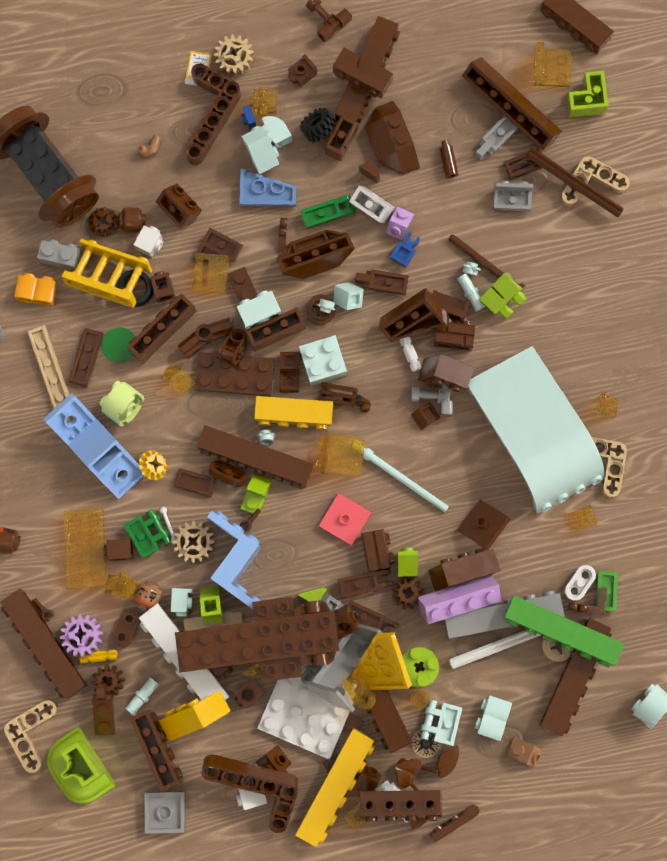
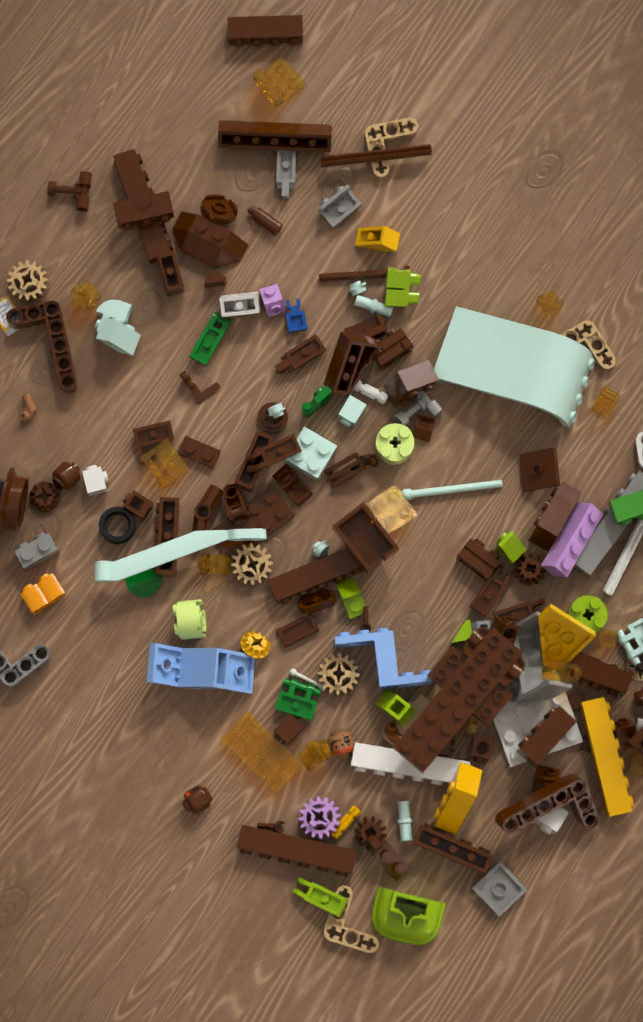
camera: 50 degrees left, 0 degrees up
(28, 696) = (322, 897): none -> lime hinge
(49, 366) = (108, 643): tan tile -> none
(86, 357) = (128, 610): reddish brown tile -> none
(108, 290) = (101, 545): yellow fence -> none
(126, 628) = (346, 782): reddish brown plate -> none
(151, 339) = (171, 550): none -> light aqua piece
(178, 205) = (93, 433): reddish brown brick -> none
(181, 601) = (370, 726): light aqua brick -> none
(192, 621) = (392, 732): none -> dark orange arm
(201, 414) = (239, 568): none -> tan gear
(248, 118) = (84, 320): blue plate -> none
(258, 309) = (230, 458): light aqua brick -> none
(262, 191) = (147, 366): medium blue wing -> none
(293, 412) = (324, 511): yellow brick -> none
(294, 335) = (275, 452): none -> reddish brown hinge
(301, 729) = (545, 735): none -> reddish brown piece
(302, 78) = (94, 256): reddish brown brick -> none
(302, 457) = (365, 540): none -> reddish brown piece
(315, 254) = (231, 378): reddish brown wedge -> none
(317, 125) = (150, 282): black tyre -> none
(345, 519) = (434, 557): coral plate -> none
(348, 296) = (284, 389): light aqua panel -> none
(364, 326) = (320, 398): none -> green plate
(382, 356) = (351, 411): none -> light aqua brick
(393, 419) = (385, 449): none -> yellowish green brick
(420, 121) = (218, 209): none -> reddish brown tile
(509, 170) = (317, 188): reddish brown tile -> none
(520, 245) = (377, 239): none -> yellow slope
(592, 99) = (332, 80): lime brick -> none

